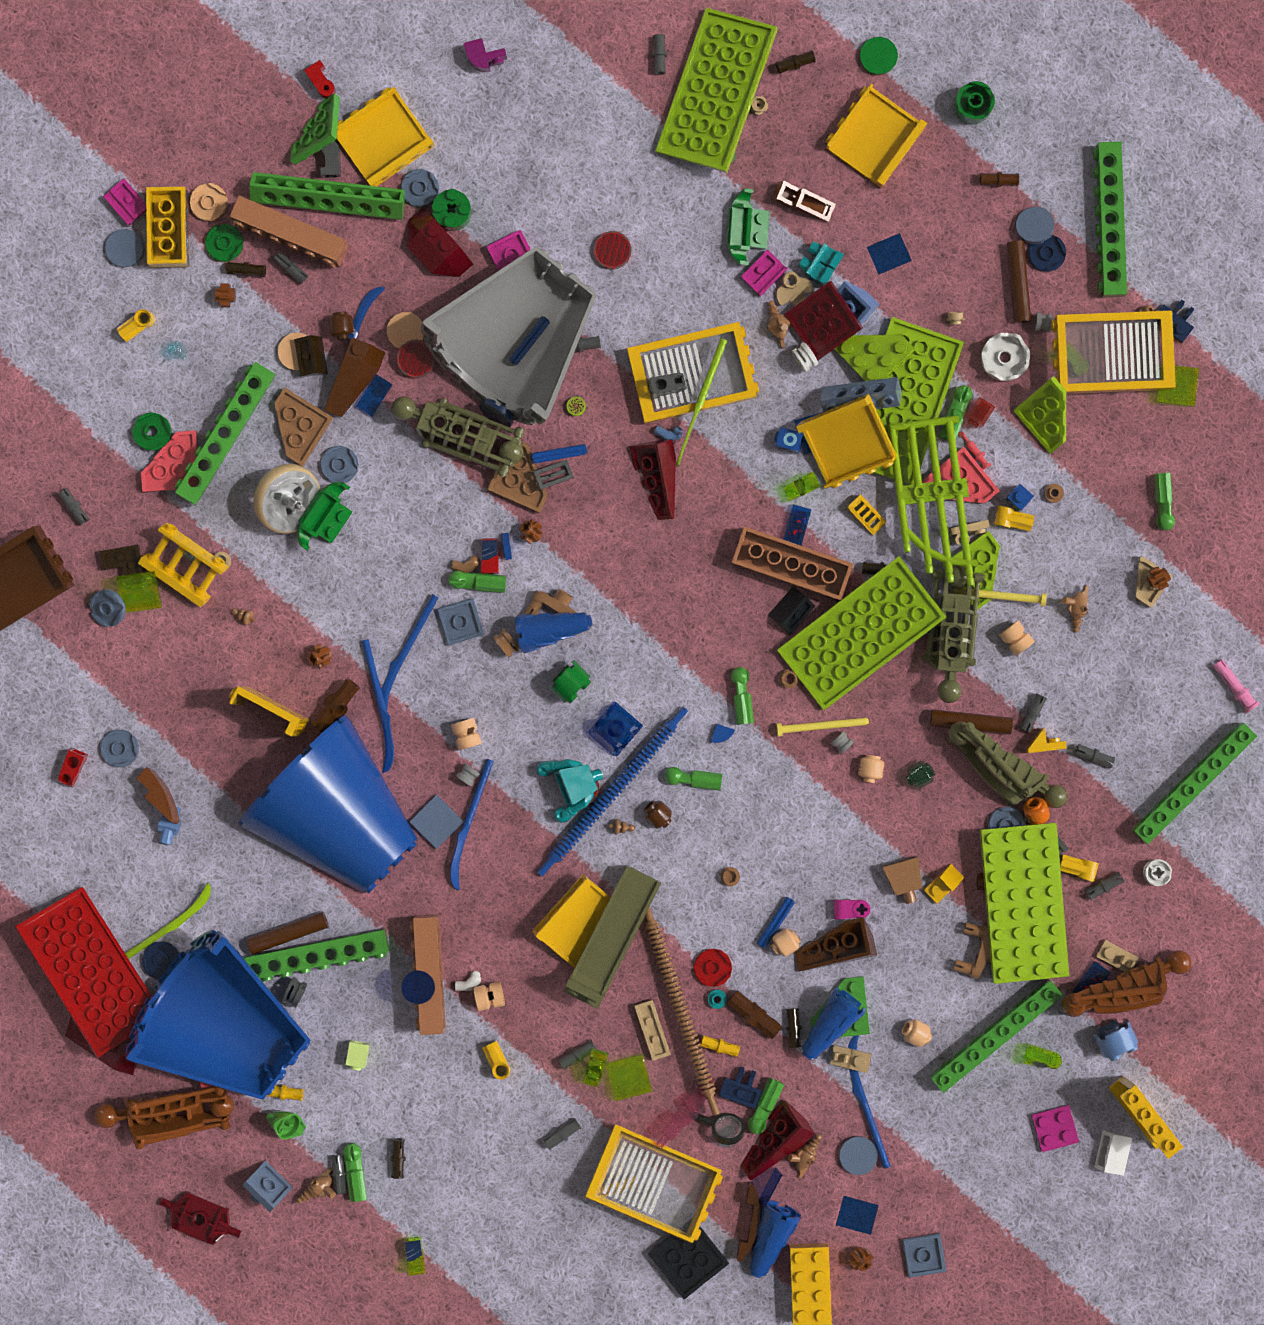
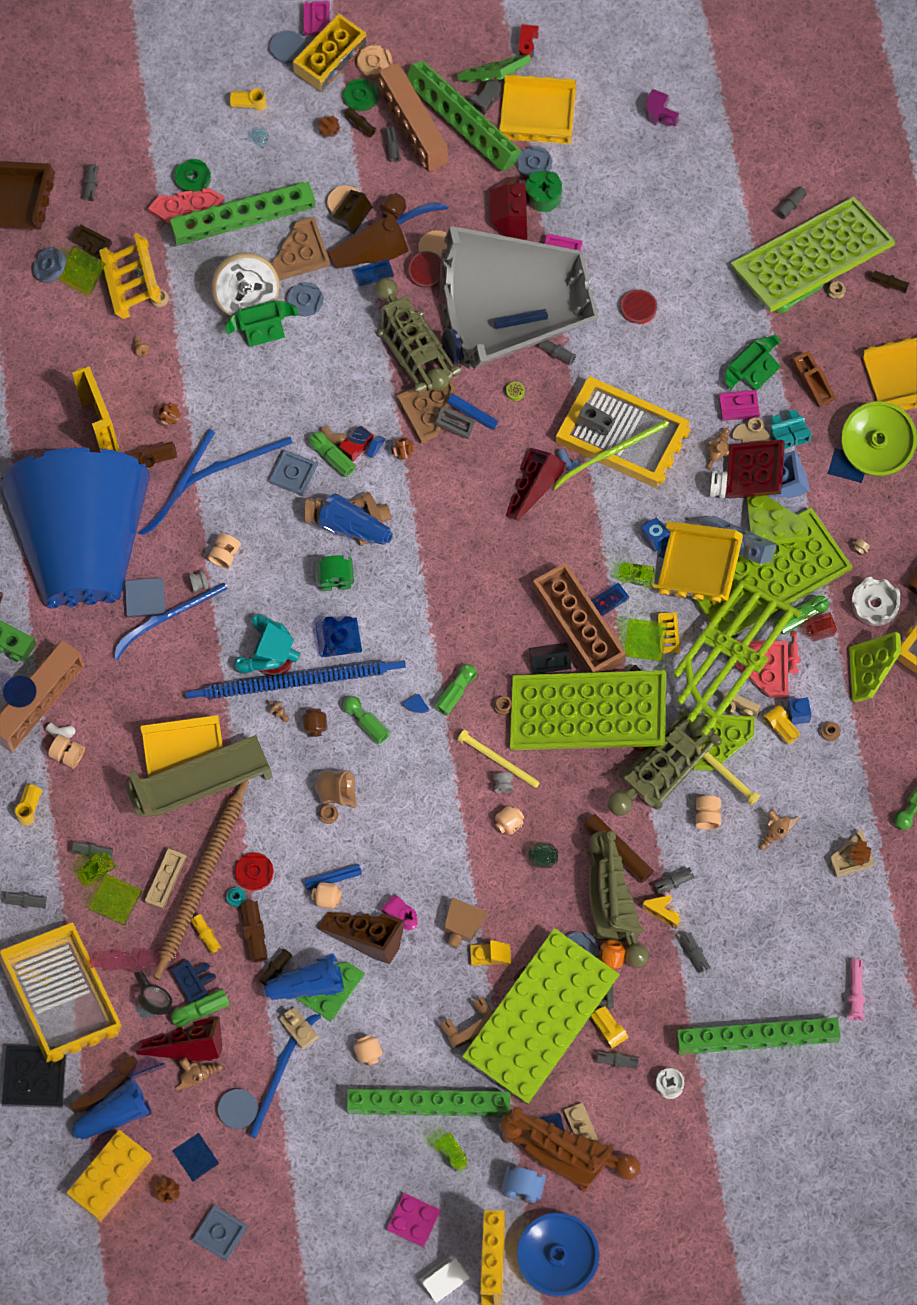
camera: 45 degrees right, 20 degrees down
(721, 854) = (336, 788): none -> medium nougat piece
(855, 536) = (645, 639): none -> clear neon green plate
(899, 214) = (879, 439): none -> lime dish
(1182, 1069) = (558, 1254): none -> blue dish

